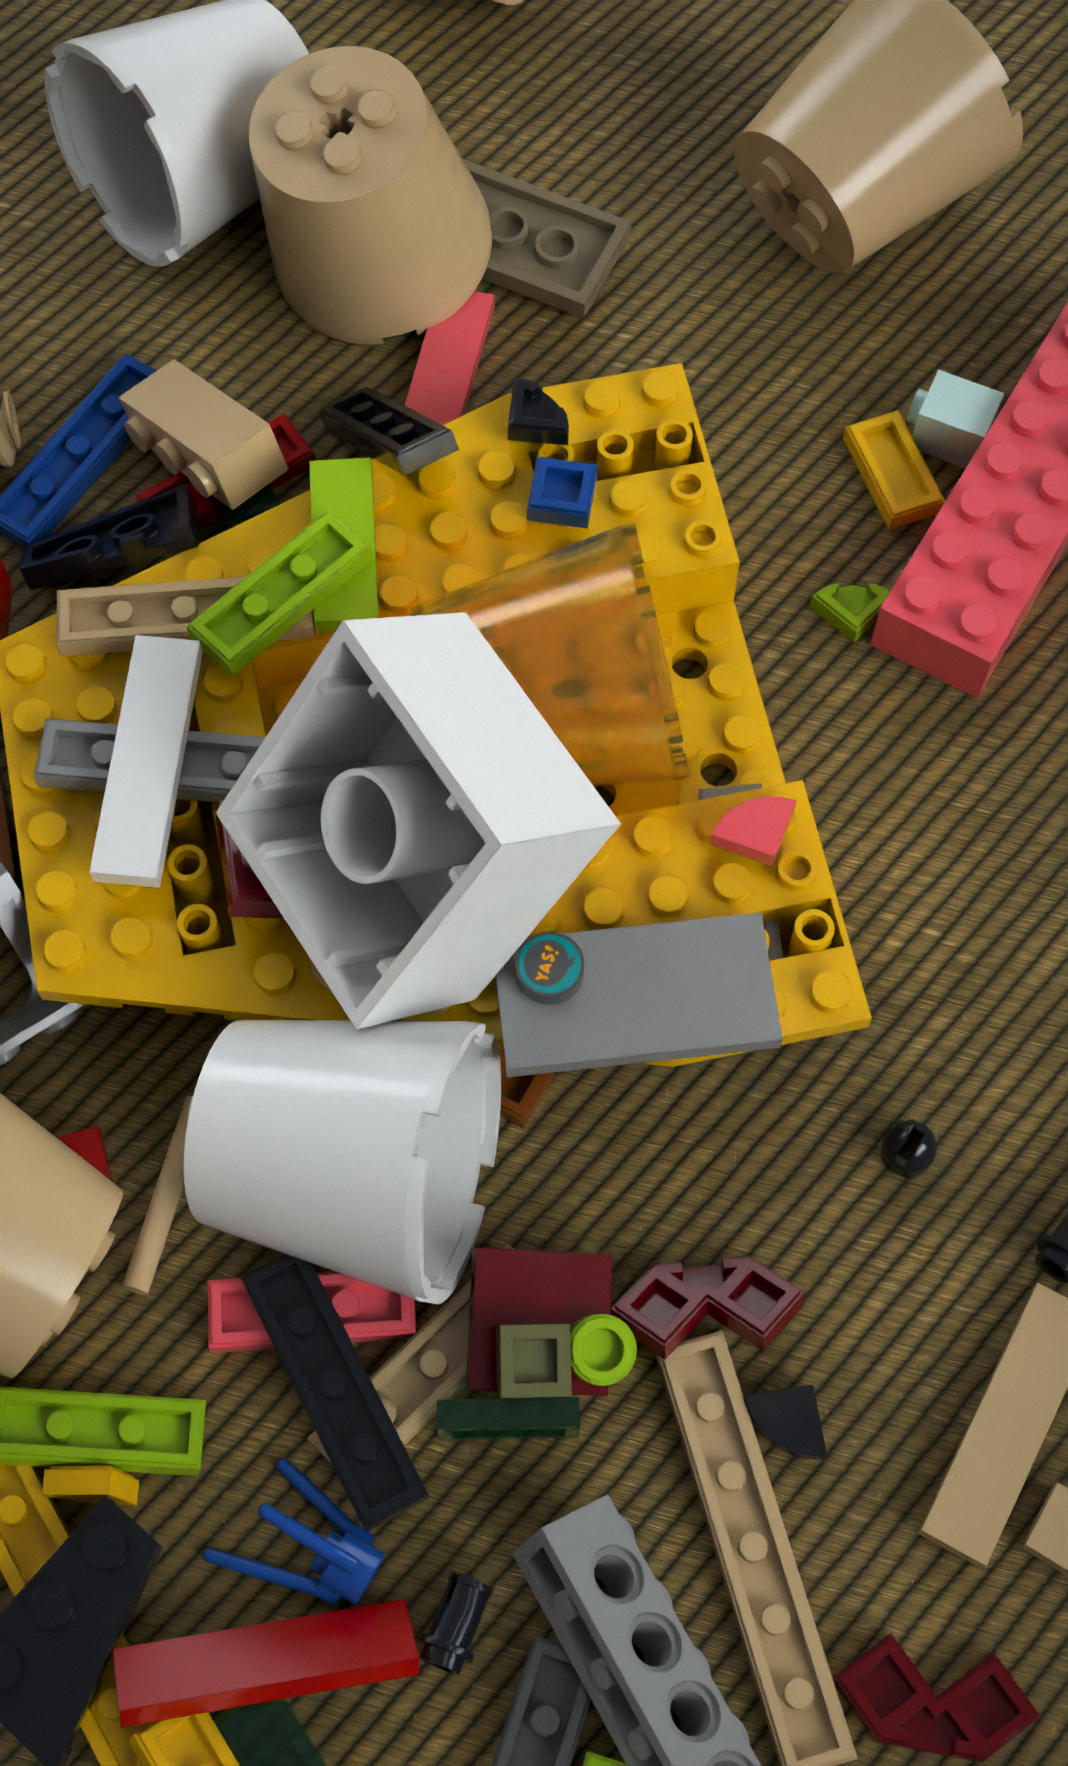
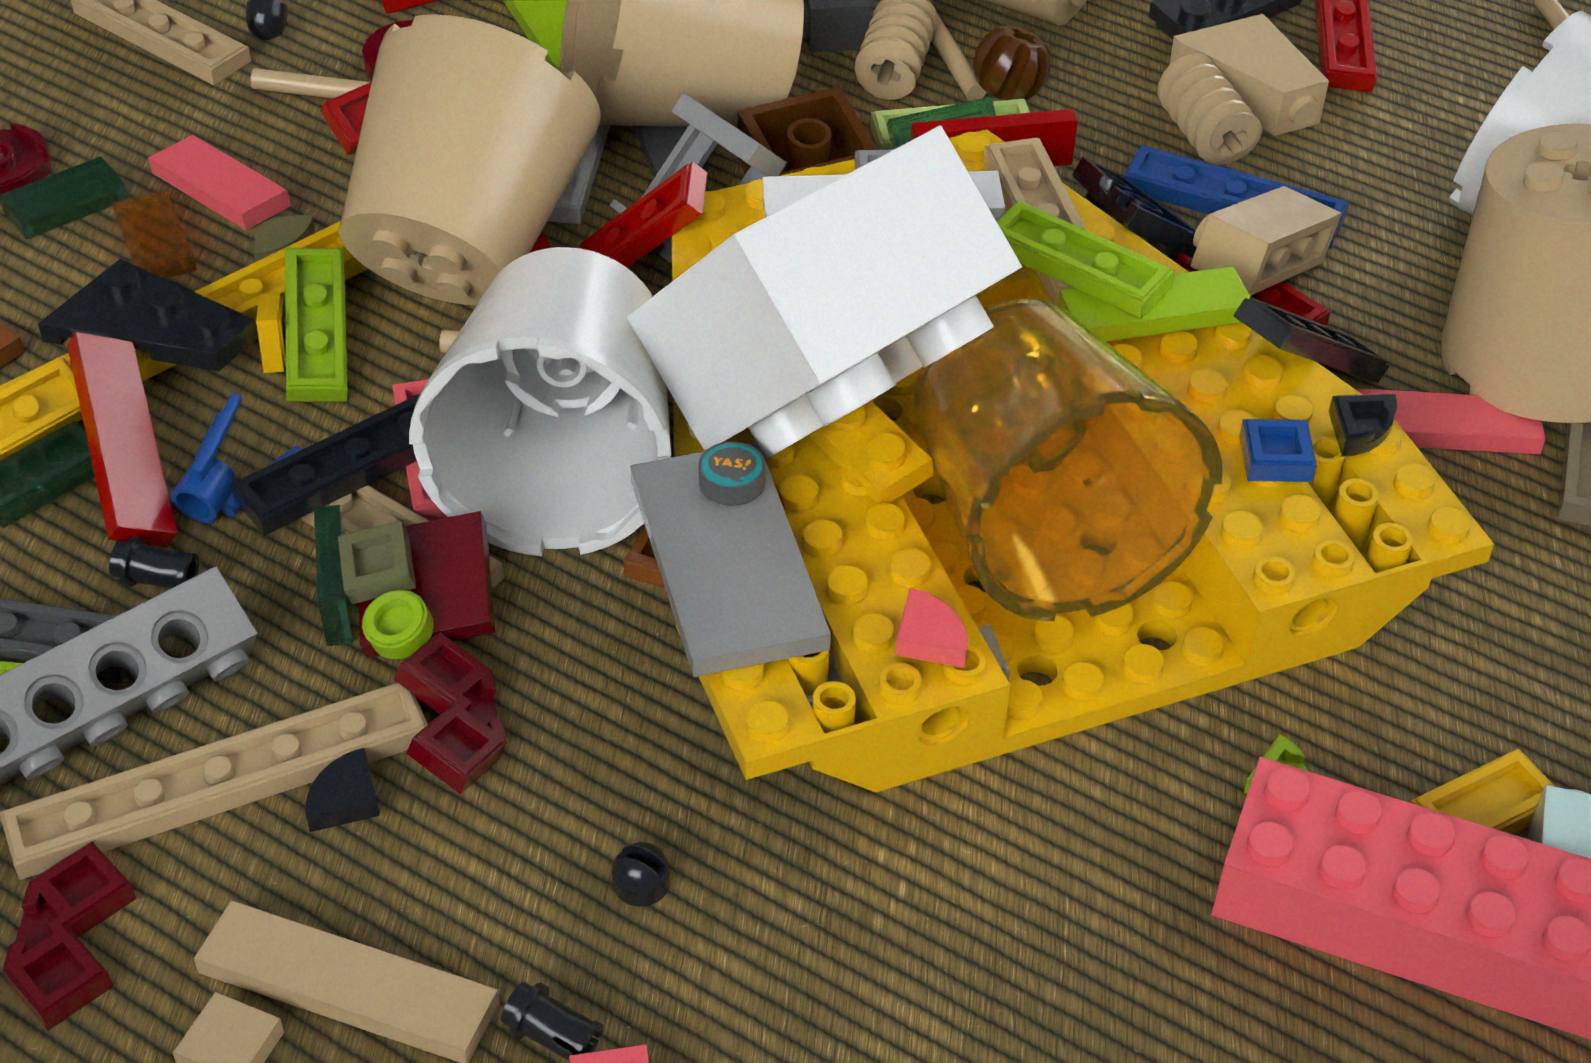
camera: 80 degrees right, 20 degrees down
(59, 1032) = (652, 217): none -> red tile

